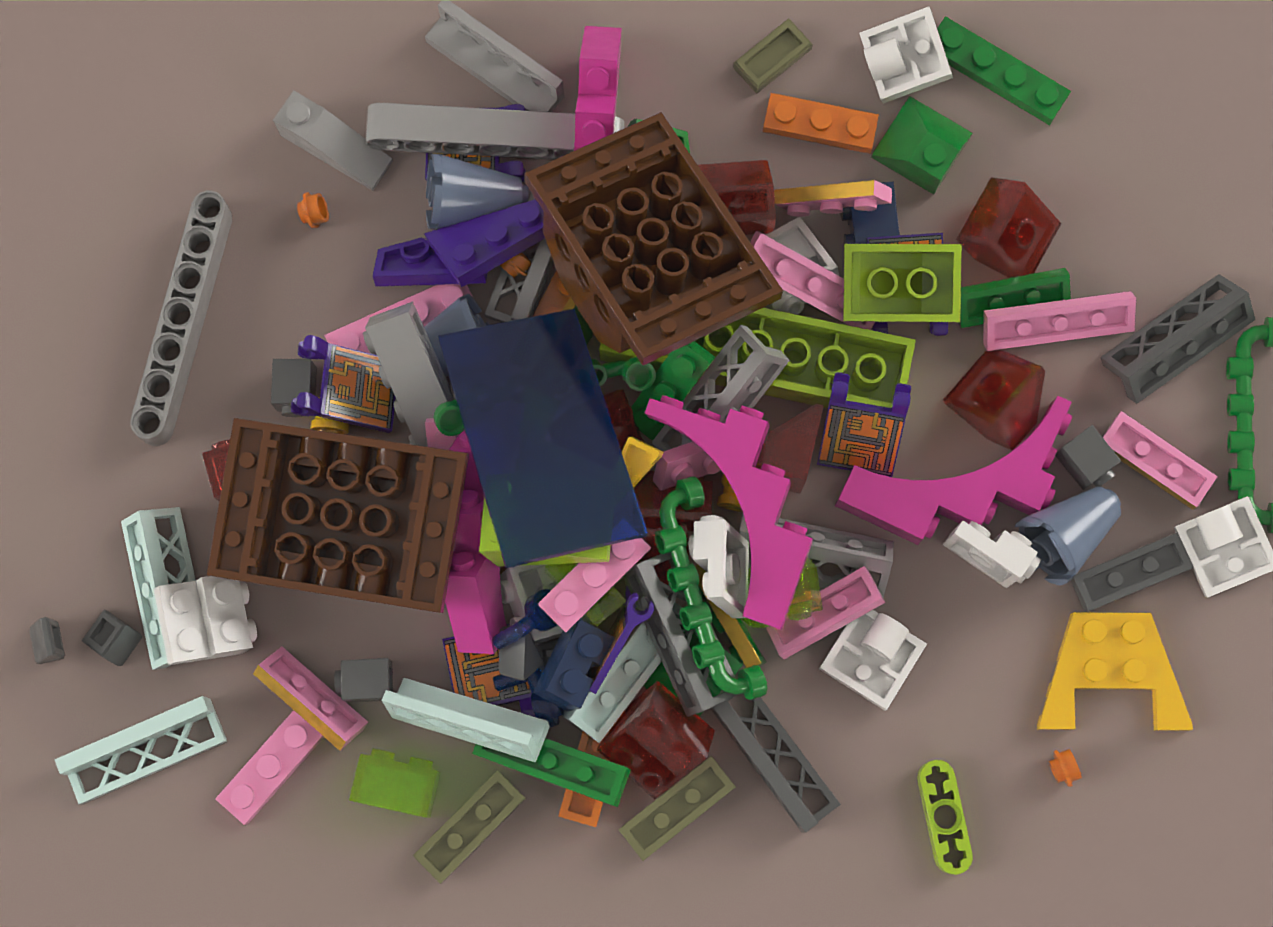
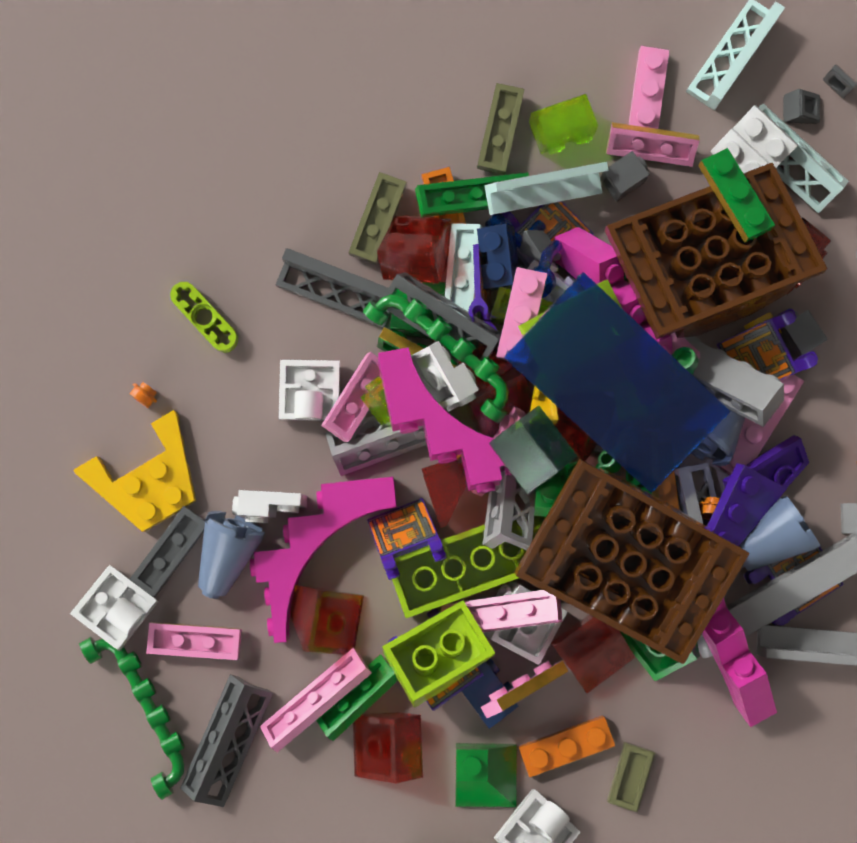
camera: 150 degrees right, 5 degrees up
(275, 559) = (736, 195): none -> green plate
(677, 416) = (533, 449): none -> clear green slope
(1088, 458) = (240, 612): dark grey brick -> none

